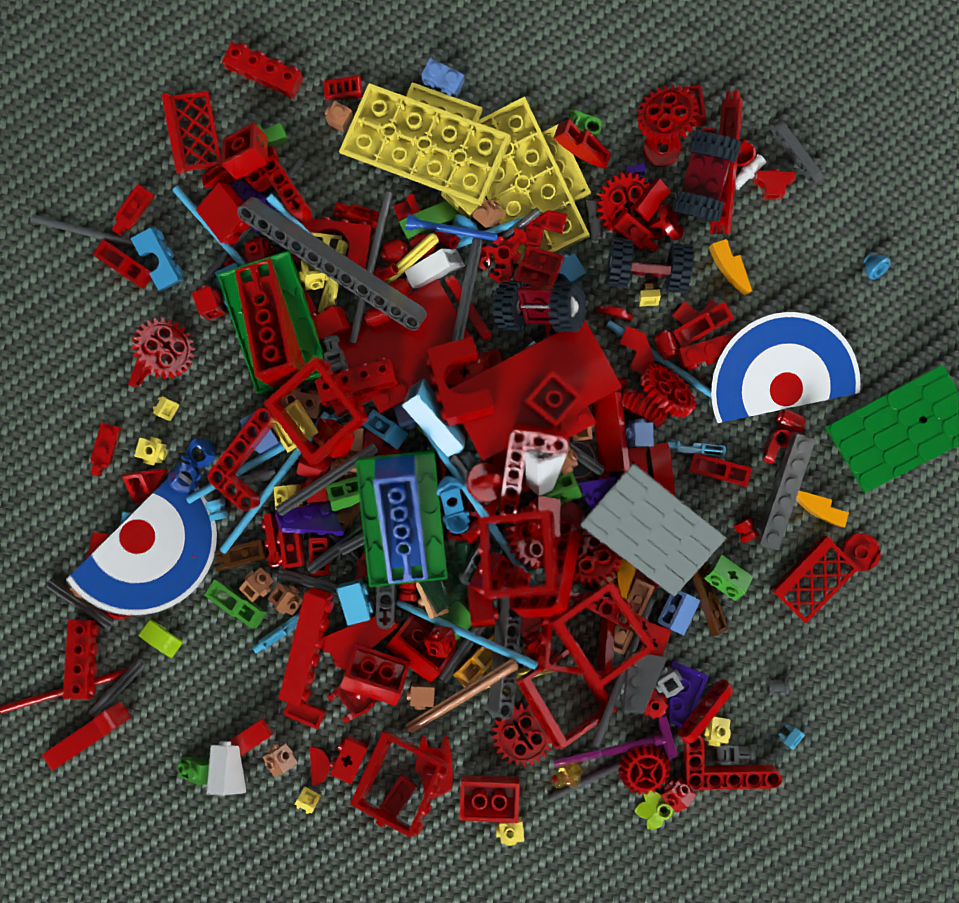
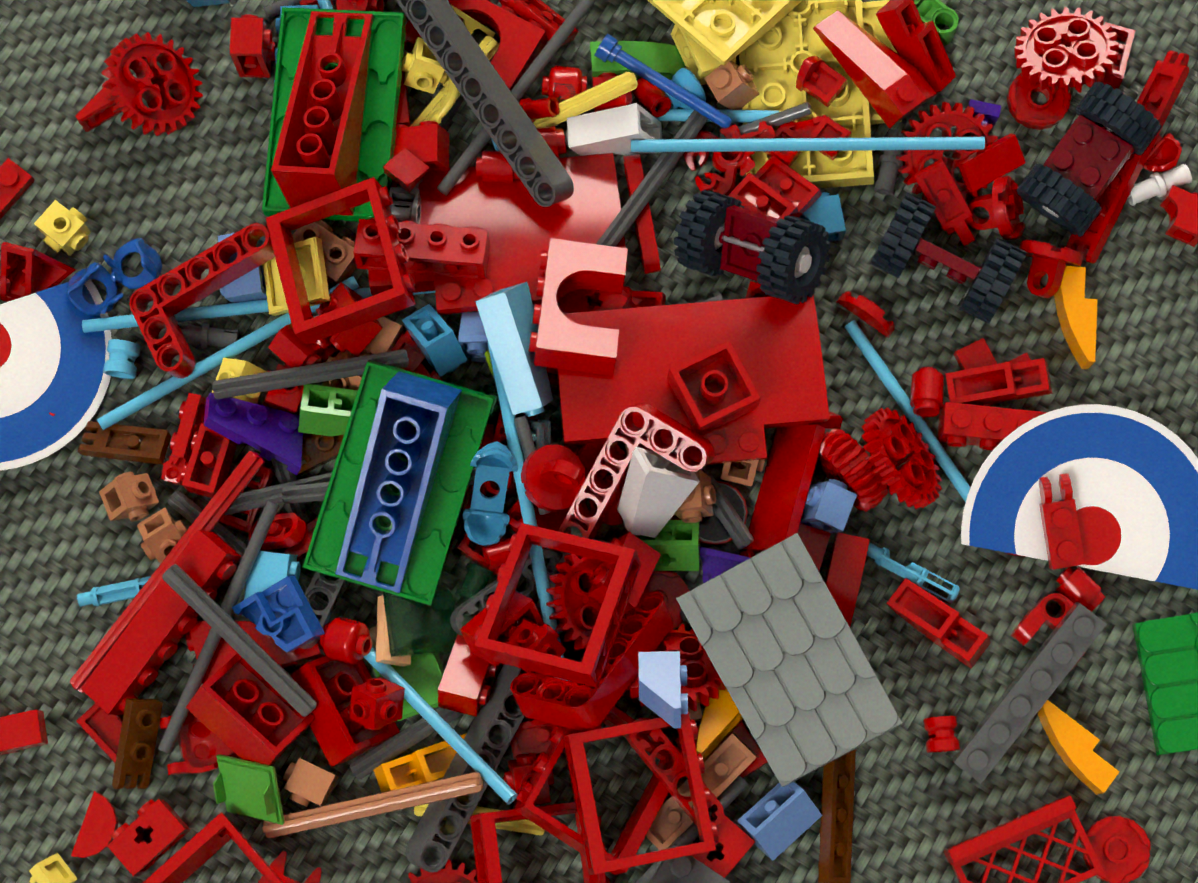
camera: 20 degrees right, 10 degrees down
(165, 408) = (115, 176): light yellow tile -> none
(235, 604) = (83, 515): bright green slope -> none
(279, 759) = (38, 788): nougat brick -> none
(305, 584) = (205, 521): none -> red axle
(321, 714) = (137, 743): none -> reddish brown hinge
(328, 340) = (405, 169): none -> red slope
(338, 636) = (213, 638): none -> dark grey piece
(345, 570) = (284, 532): none -> red plate
(352, 641) = (239, 640): none -> dark grey axle
(370, 617) = (282, 614): none -> blue slope
(391, 714) = (248, 789): none -> bright green piece
(407, 207) = (617, 29): red panel -> none
(408, 595) = (357, 611): red wheel -> none
(409, 614) = (346, 640): none -> red head
(537, 190) = (820, 80): none -> red tile
(546, 232) = (808, 144): none -> medium azure piece
(570, 172) = (881, 74): none -> red wedge
(591, 574) = (661, 685): none -> slope
(638, 341) = (885, 369): red tile -> none
(648, 296) = (930, 308): light yellow tile -> none
(704, 243) = (1049, 261): none -> red tile
(728, 577) = (882, 797): bright green brick -> none
(768, 391) = (1060, 525): none -> red hinge

